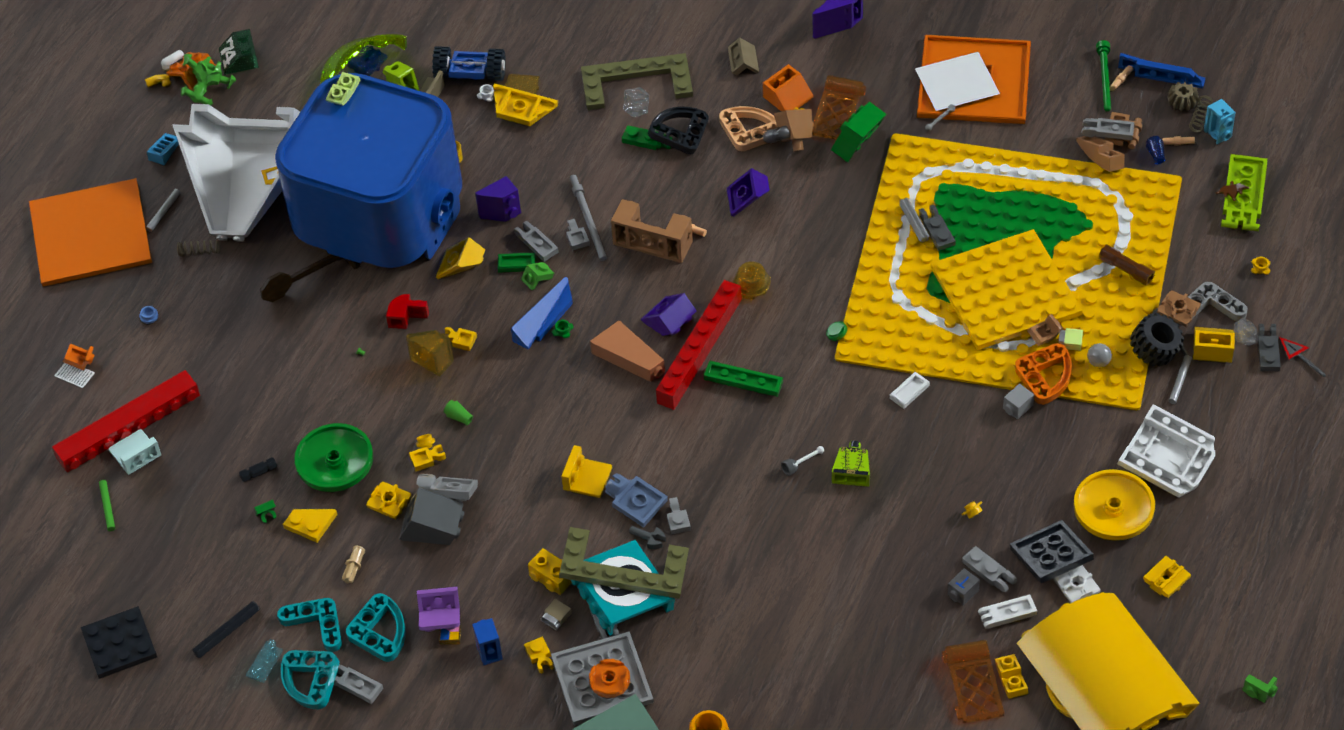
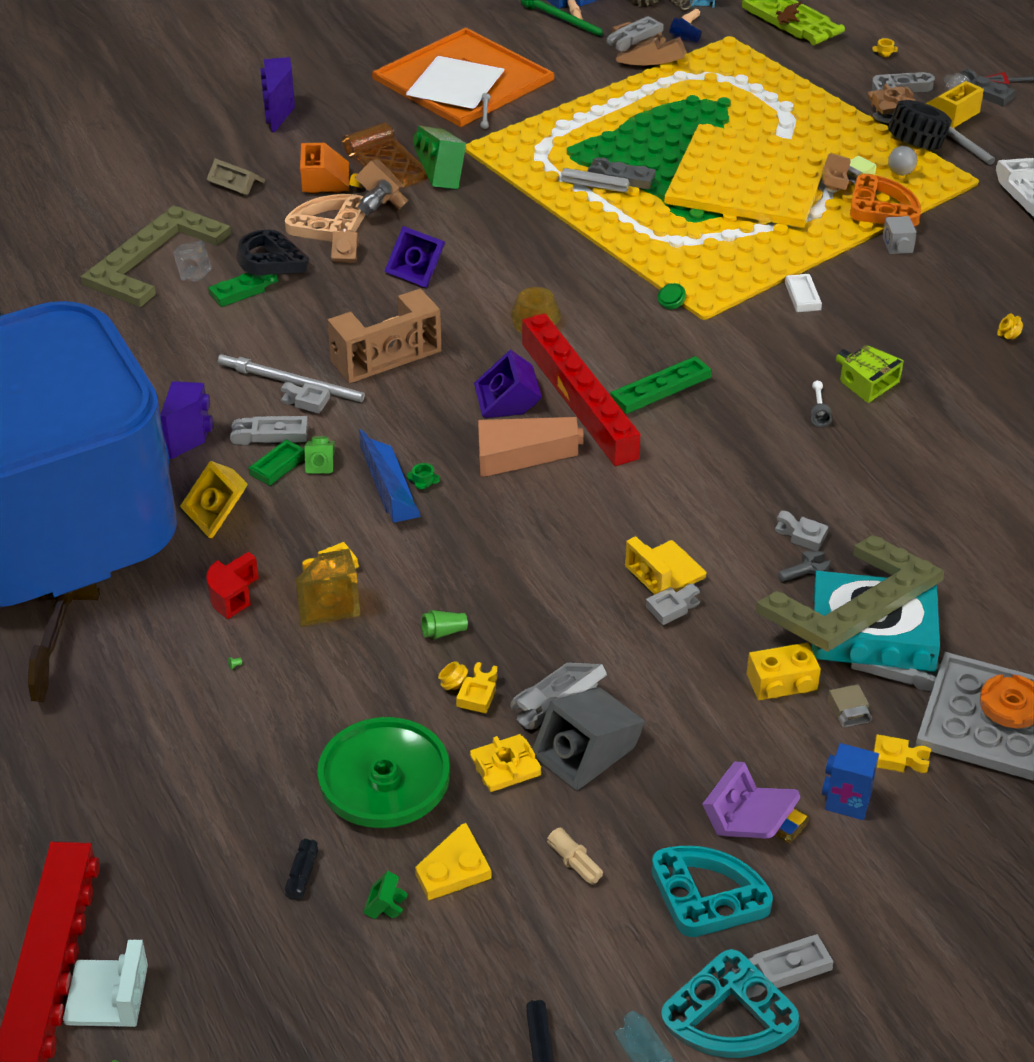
camera: 55 degrees left, 10 degrees down
(318, 613) = (621, 940): teal beam -> none
(559, 494) = (671, 605): none -> light grey plate
(635, 498) = (743, 546): sand blue plate -> none
(726, 154) = (344, 246): none -> medium nougat bracket
(1116, 258) = (791, 101): reddish brown axle -> none

